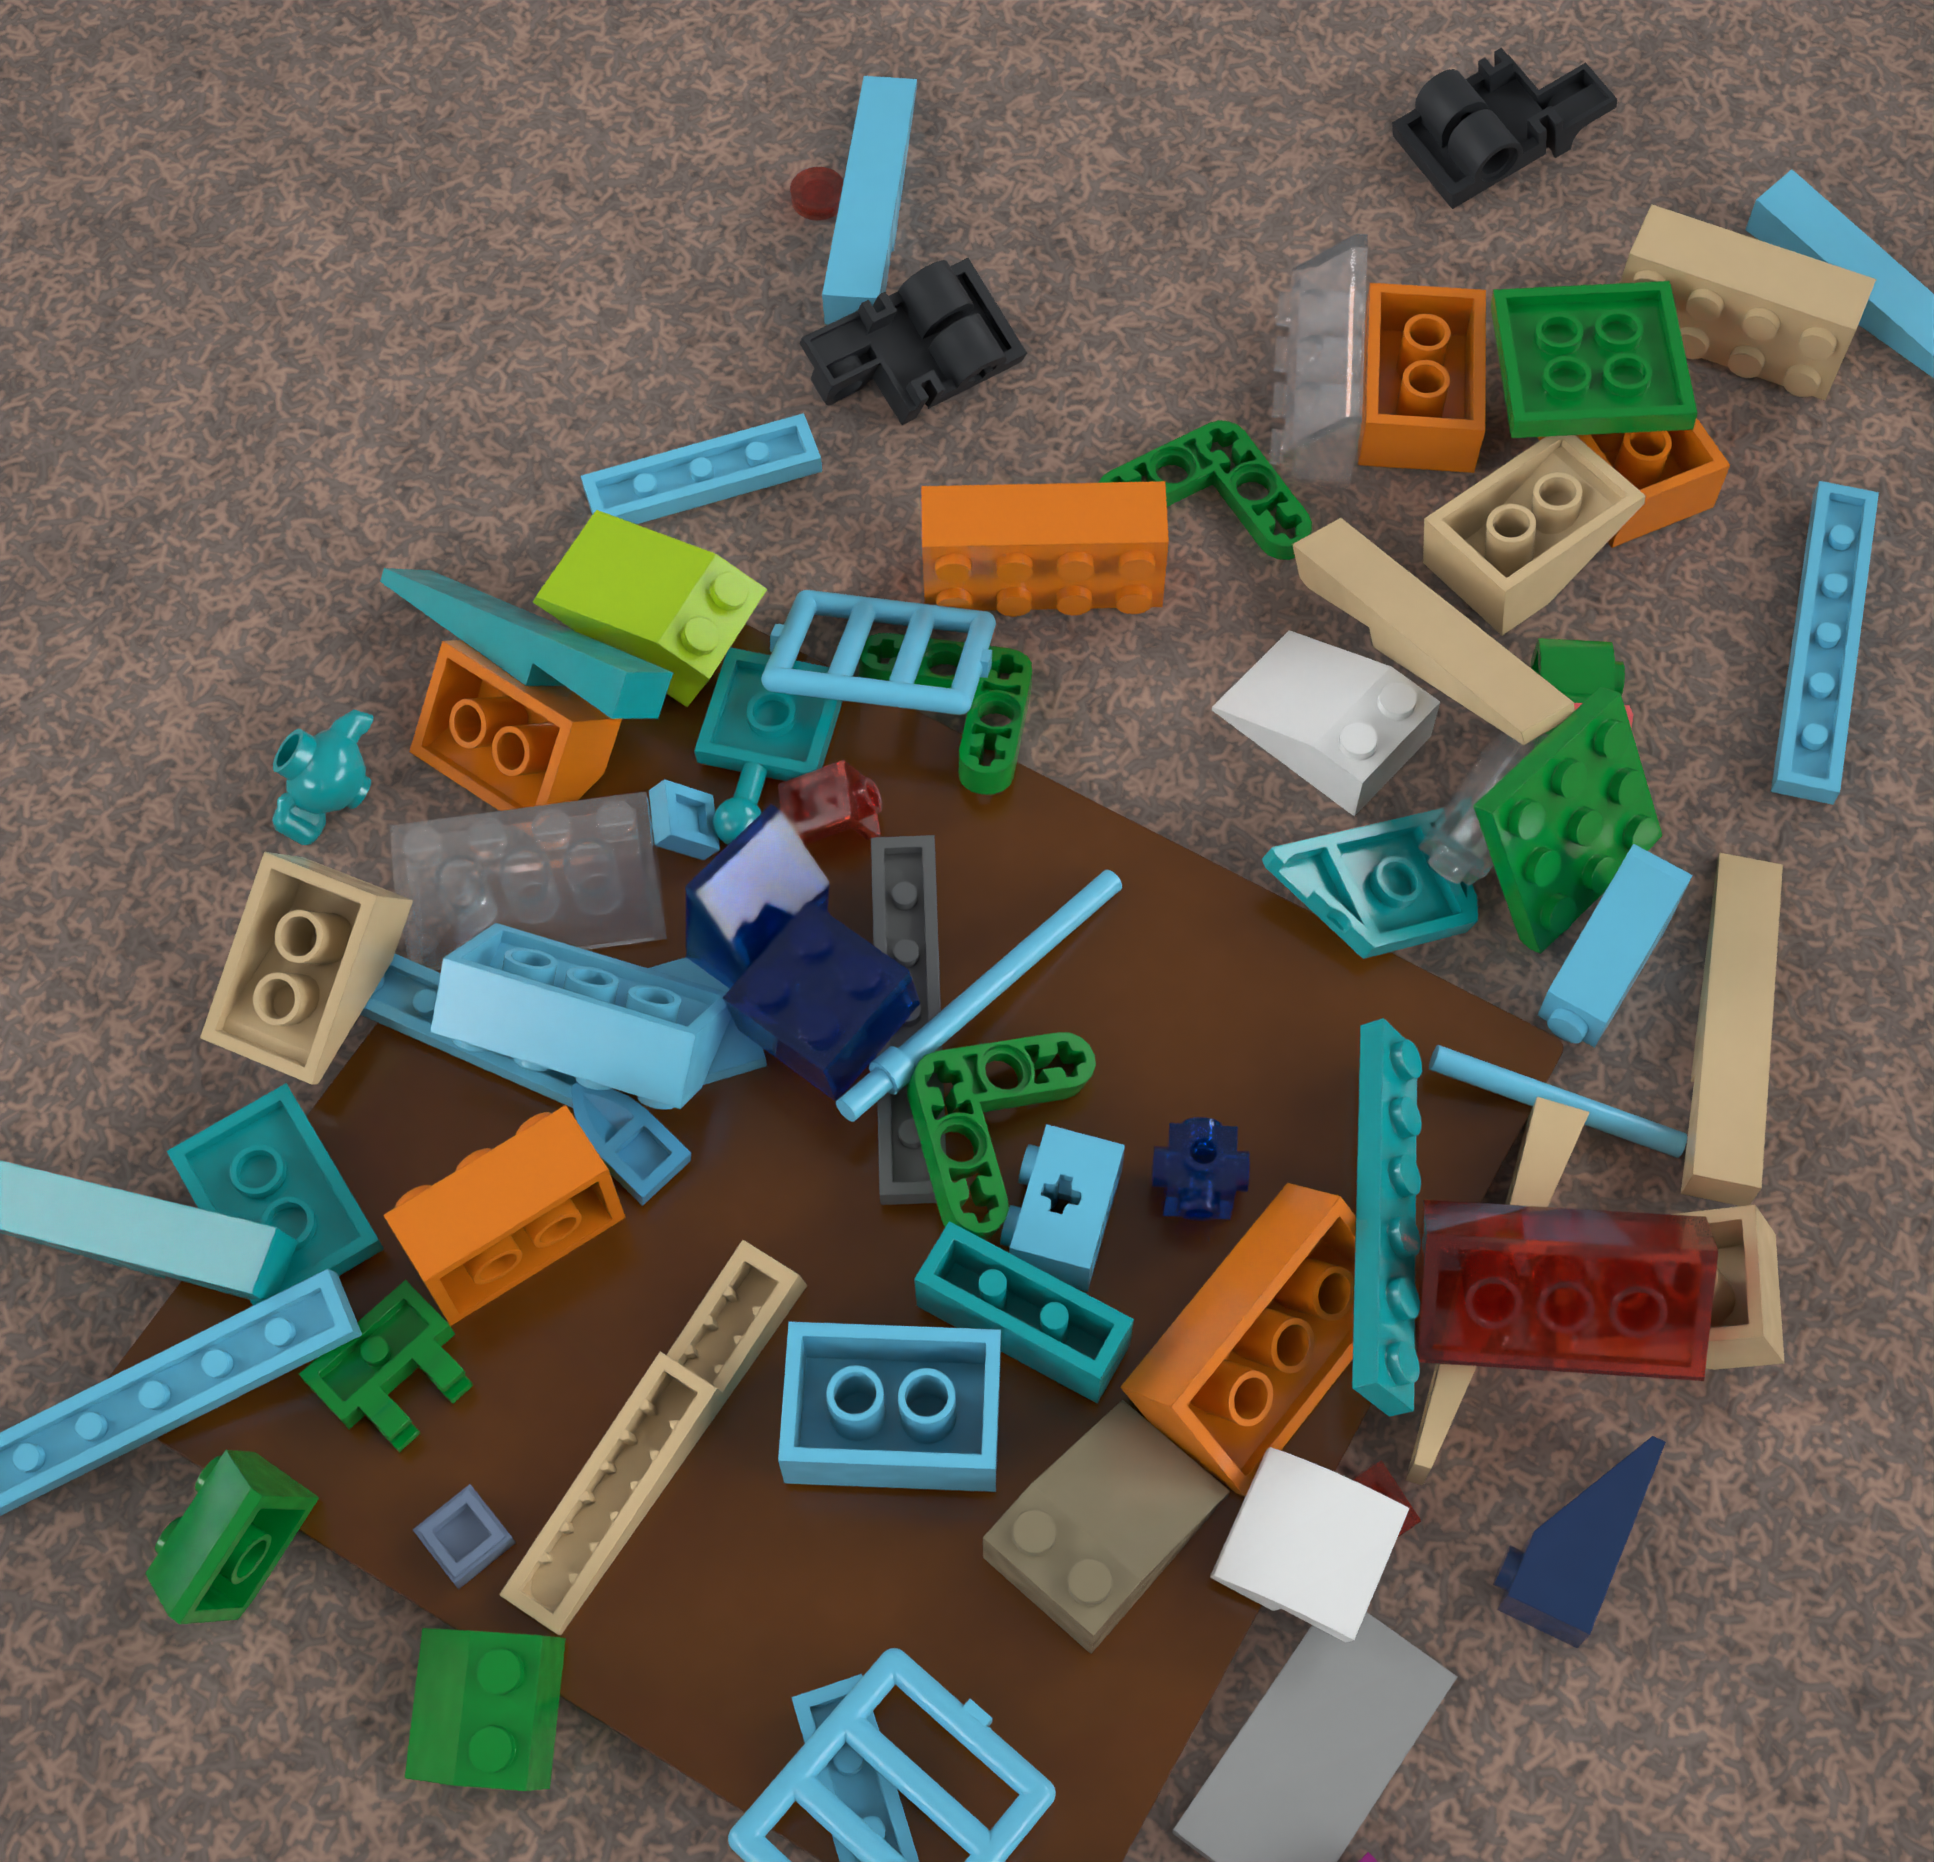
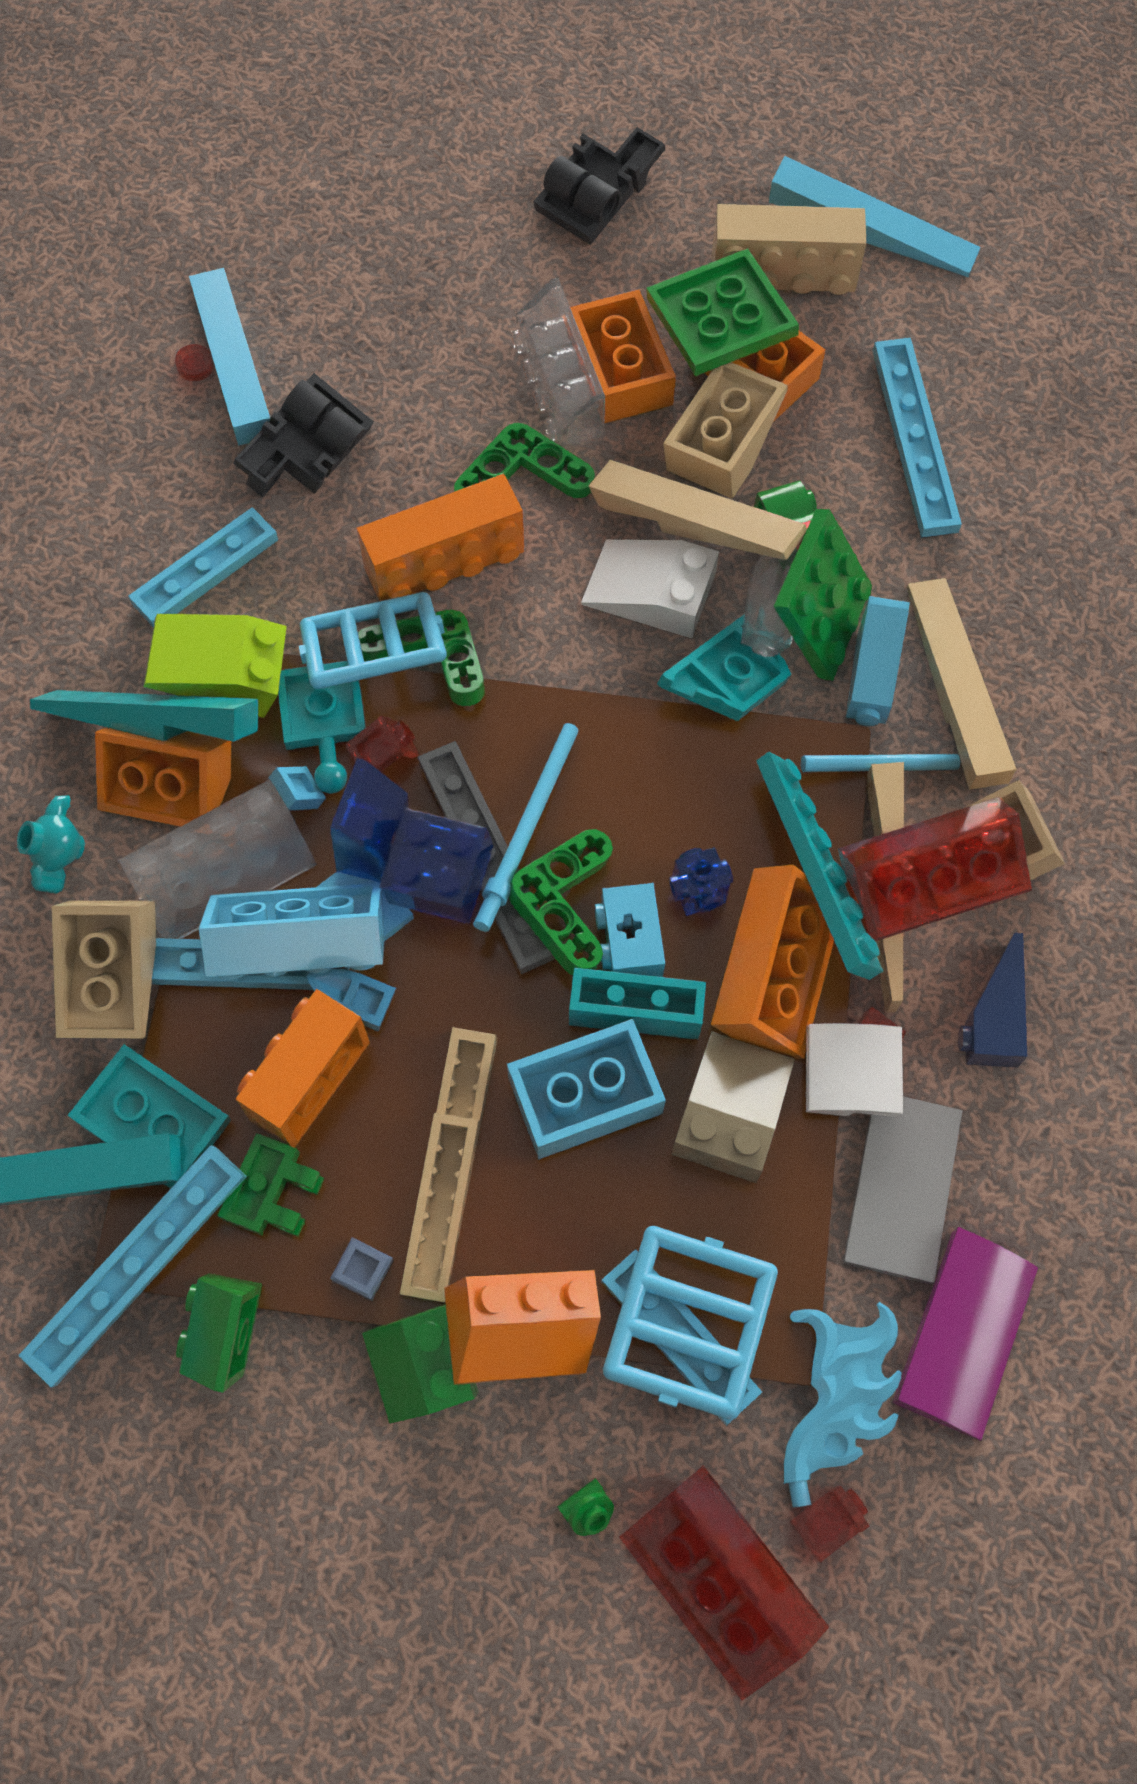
camera: 25 degrees left, 5 degrees up
(641, 1714) = (521, 1325): none -> orange slope

